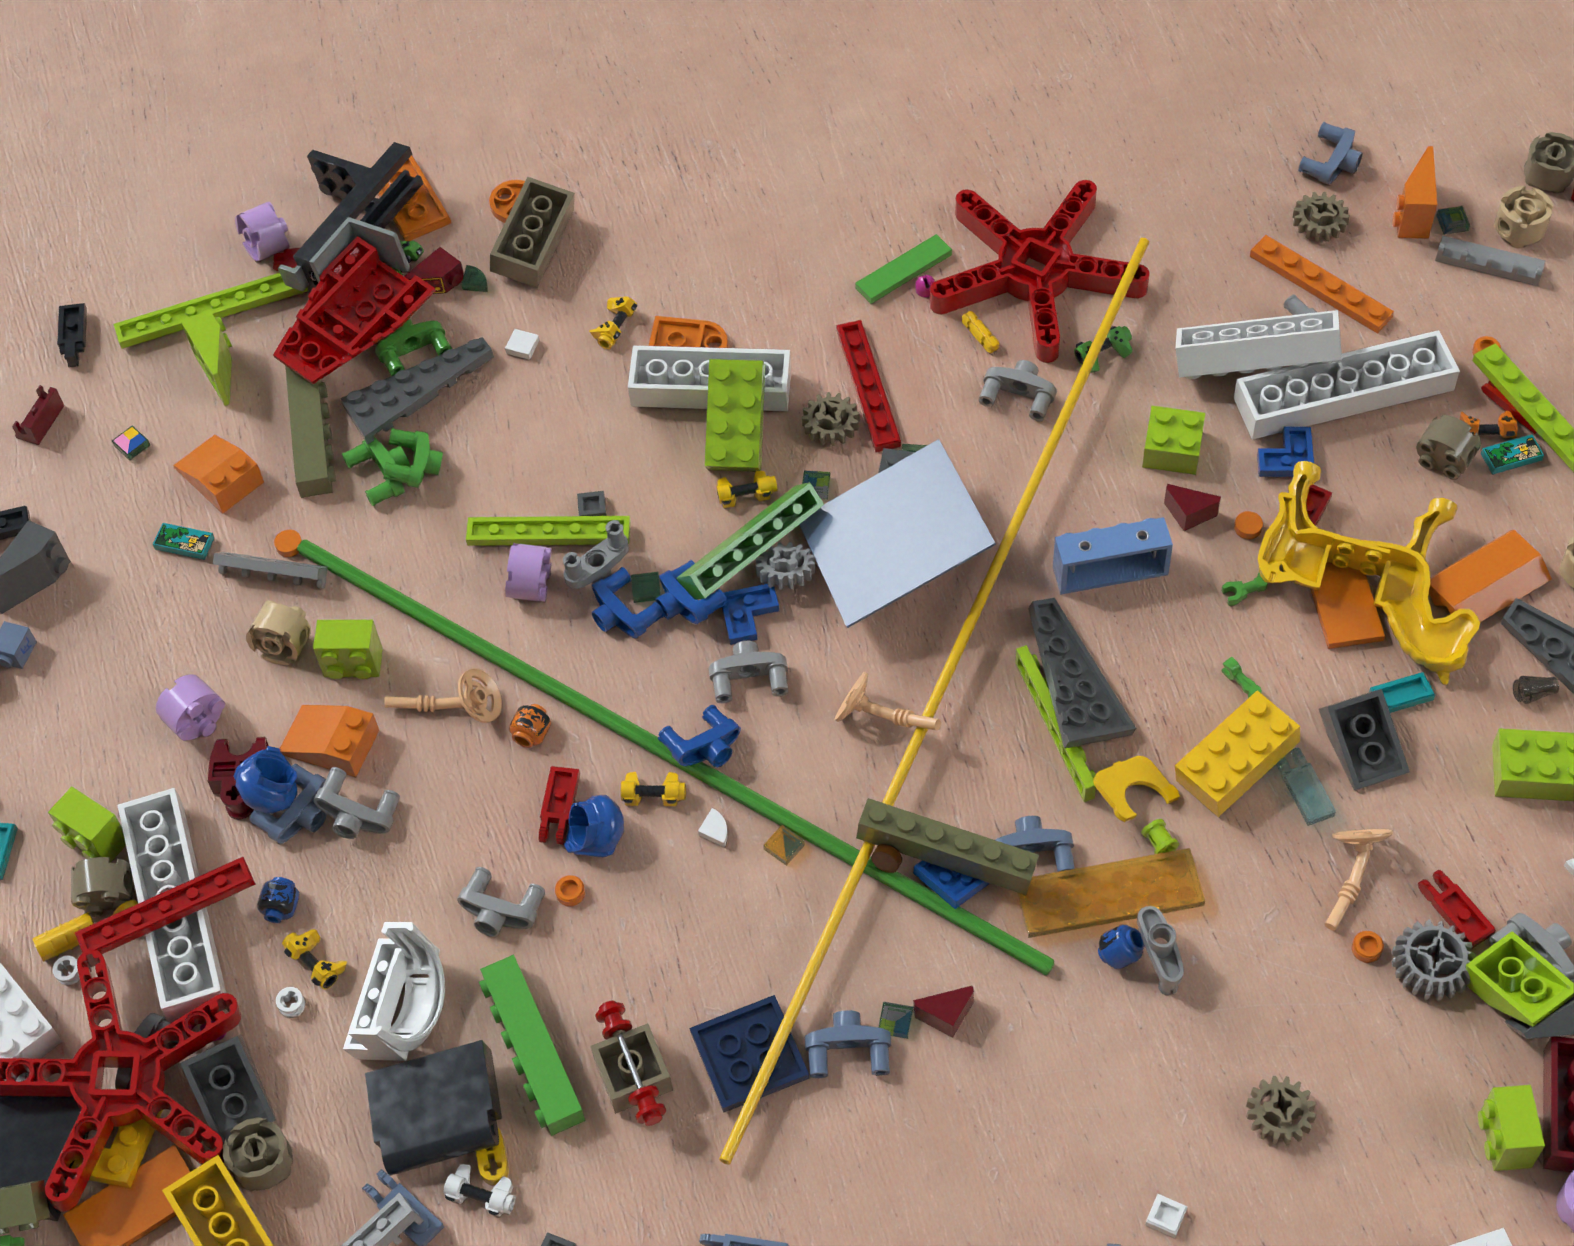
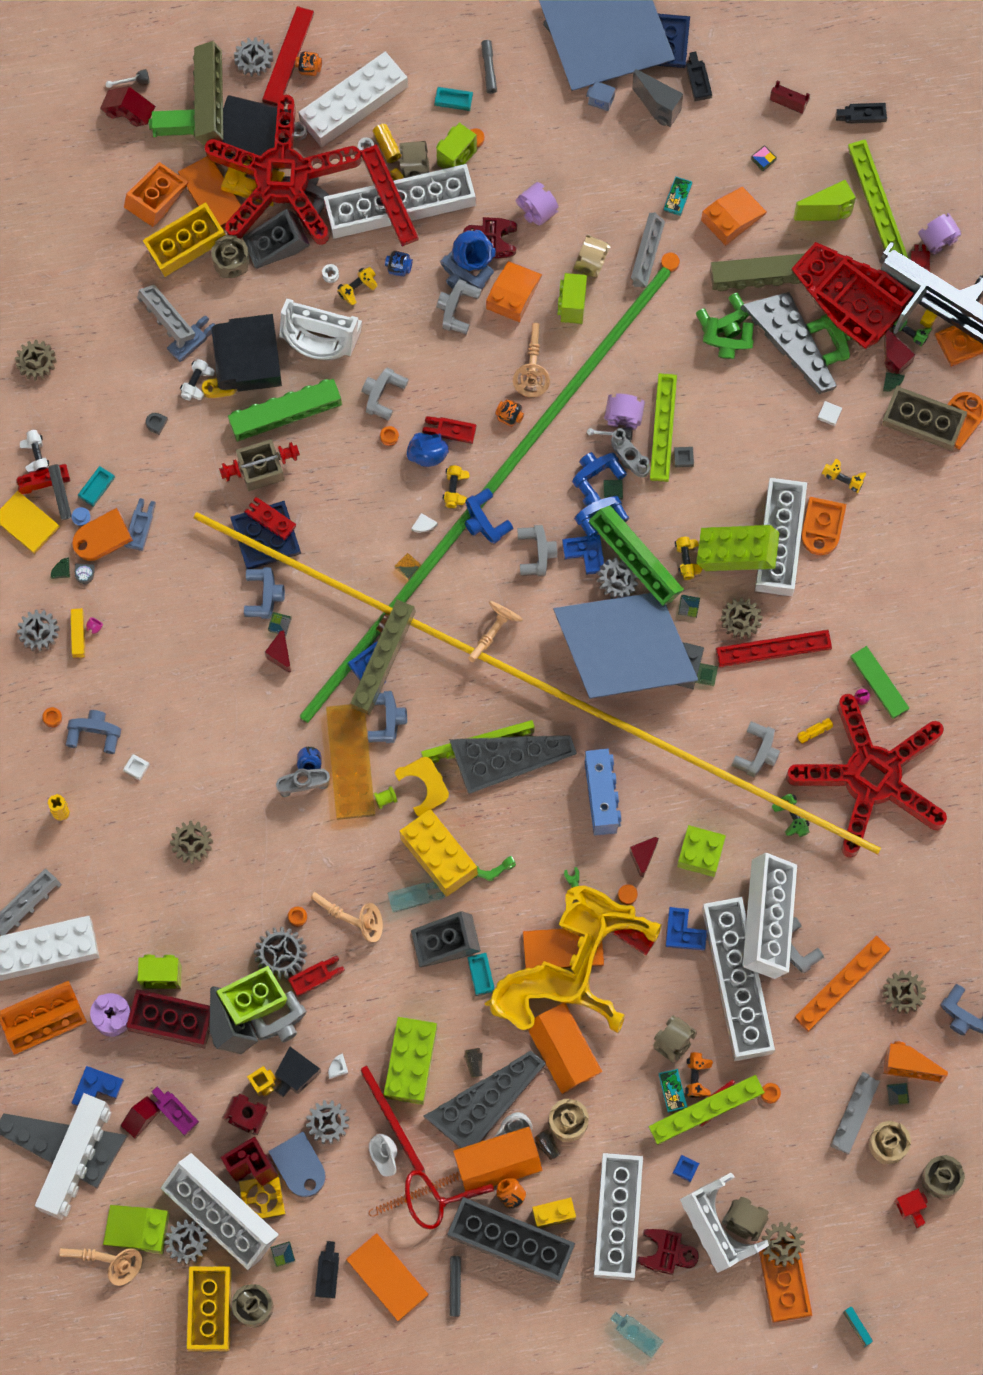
camera: 90 degrees right, 15 degrees up
(557, 578) = (628, 431): none -> hinge
(723, 1042) = (270, 518): none -> red hinge

